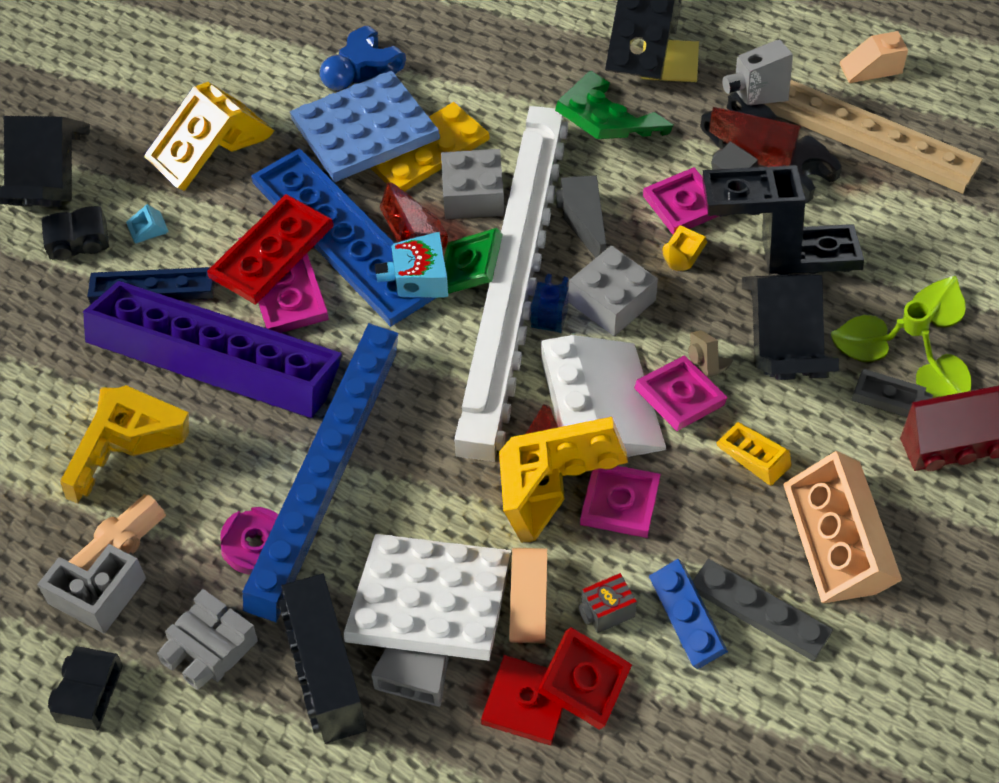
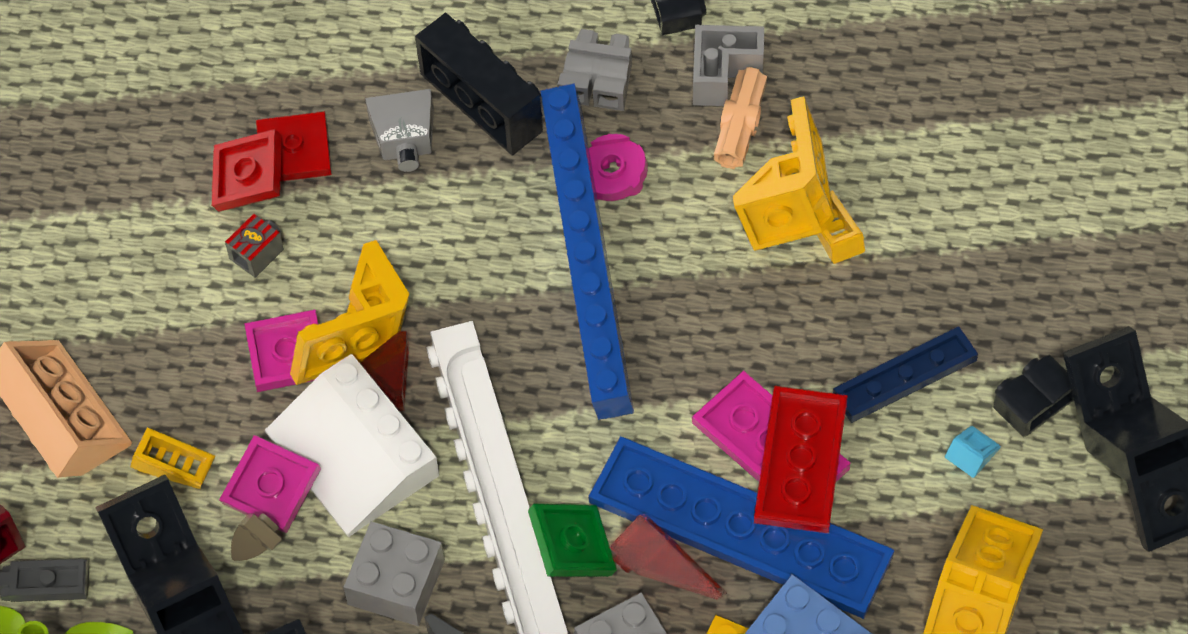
camera: 155 degrees right, 5 degrees up
(212, 348) = (784, 320): dark purple slope -> none
(416, 267) = (618, 490): medium azure torso -> none
(429, 597) = (418, 175): white plate -> none
(528, 596) = (331, 224): light nougat beam -> none
(550, 305) = (455, 527): clear blue brick -> none
(688, 614) = (179, 271): blue plate -> none
(761, 610) = (114, 307): dark grey plate -> none

